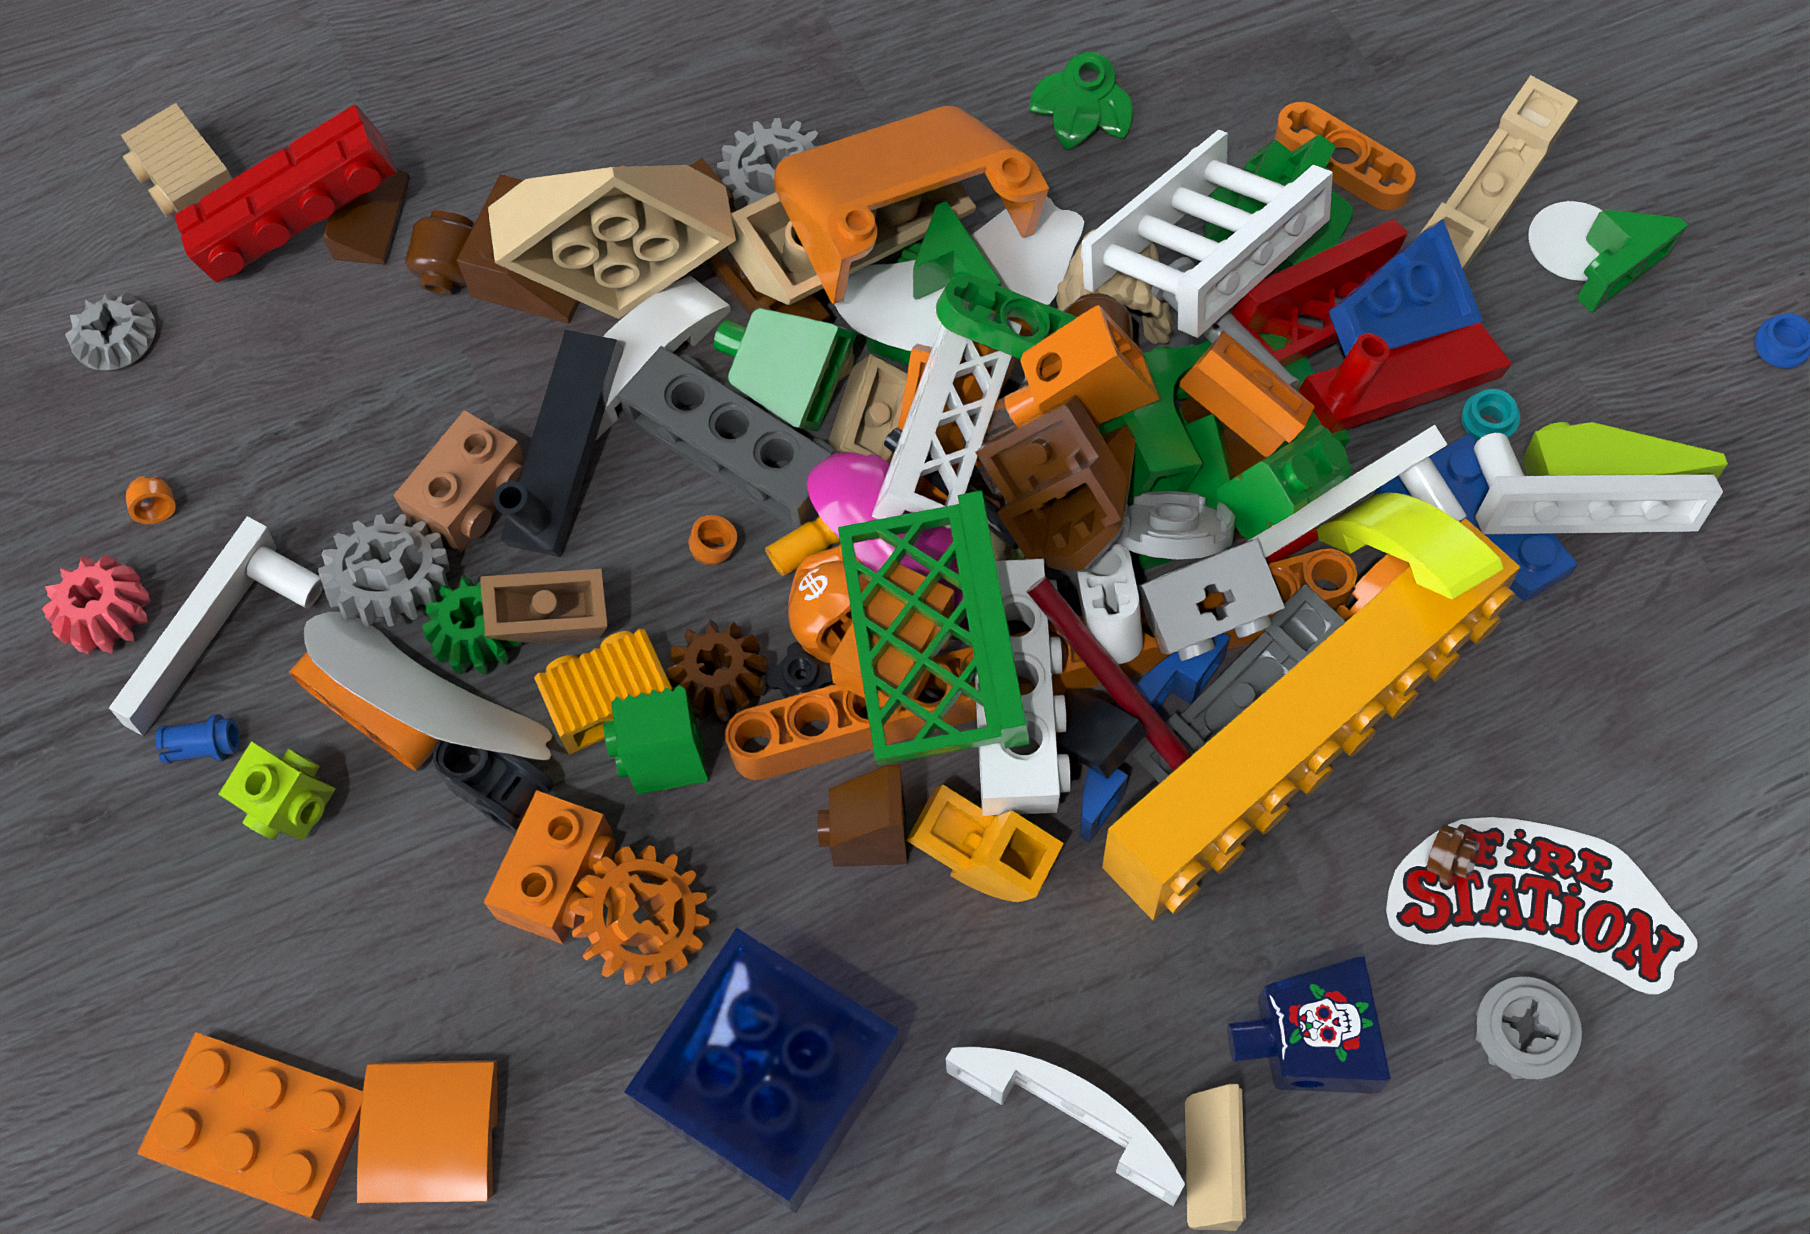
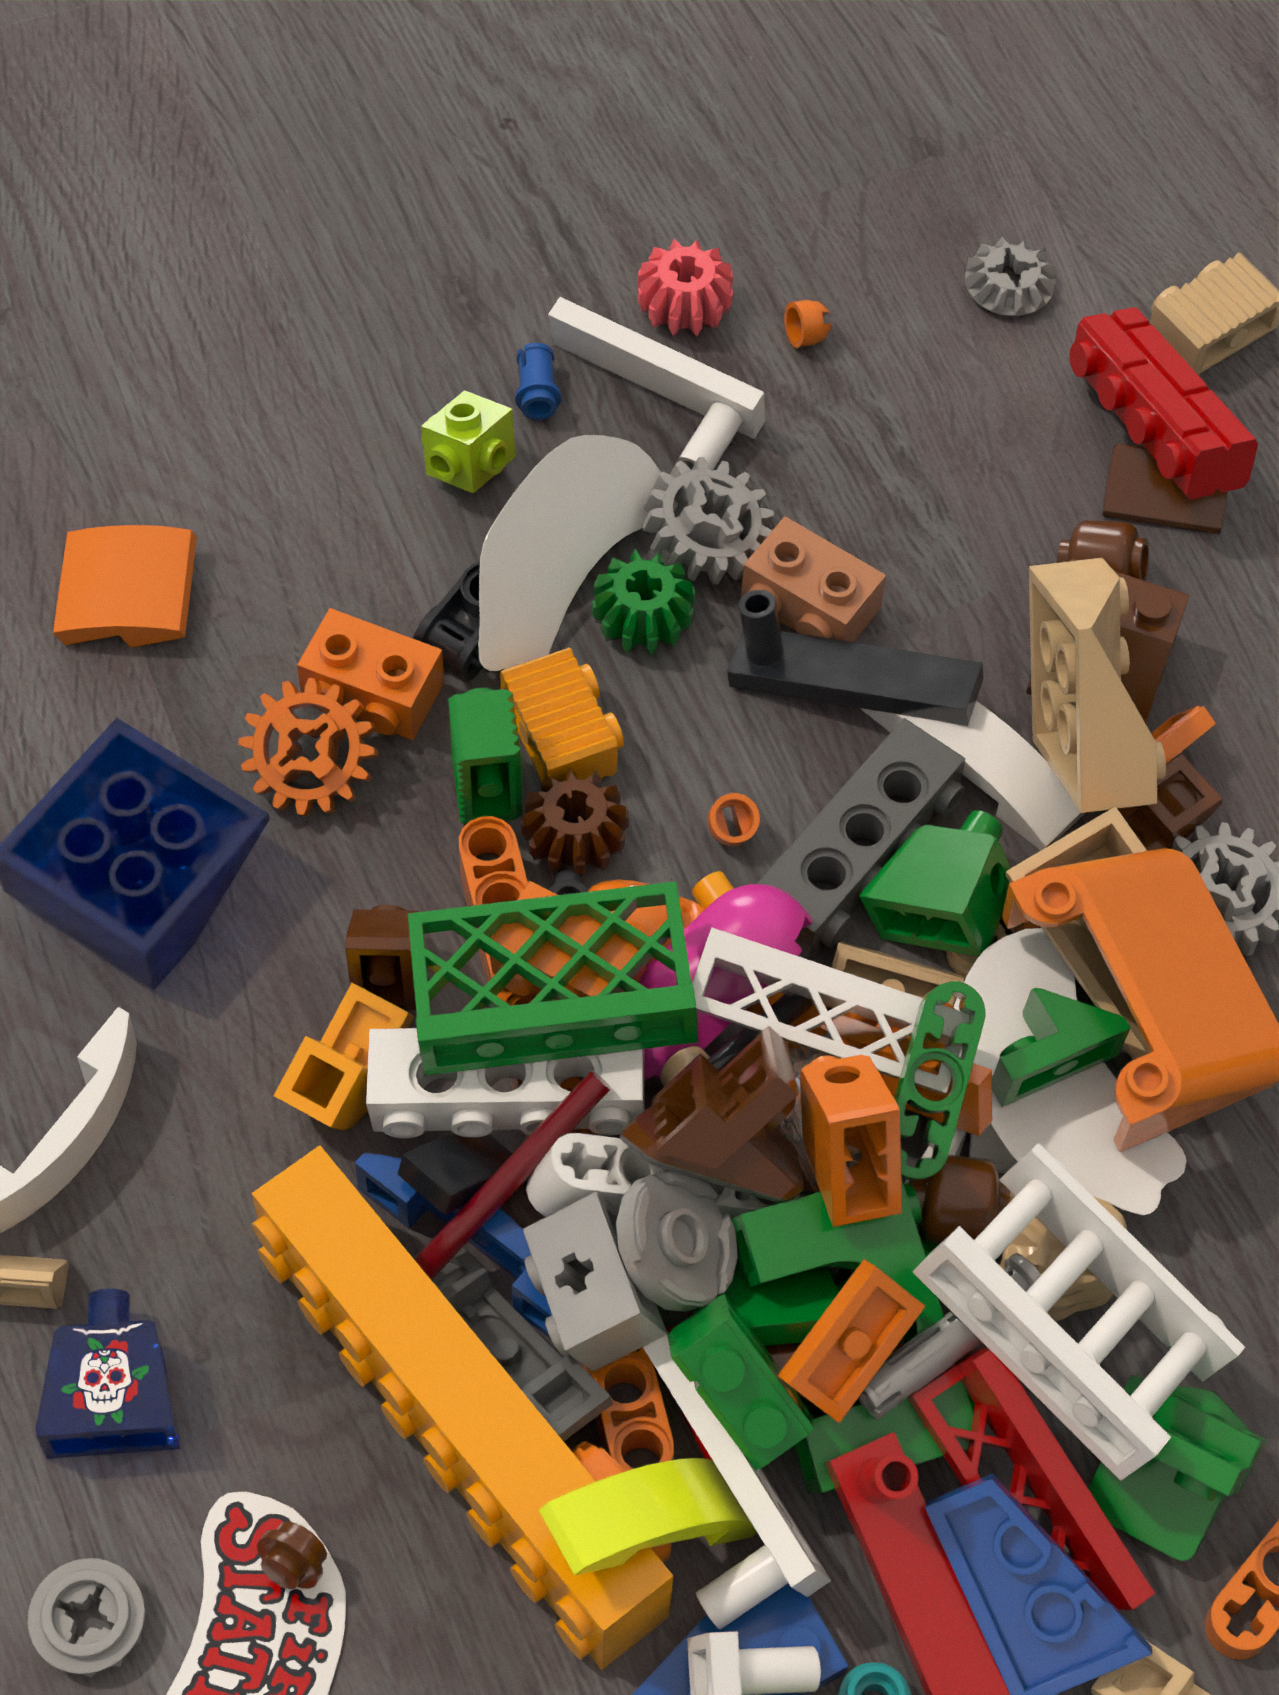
camera: 85 degrees right, 5 degrees down
(255, 1126) = (153, 452): orange plate -> none
(544, 606) = (644, 651): medium nougat slope -> none

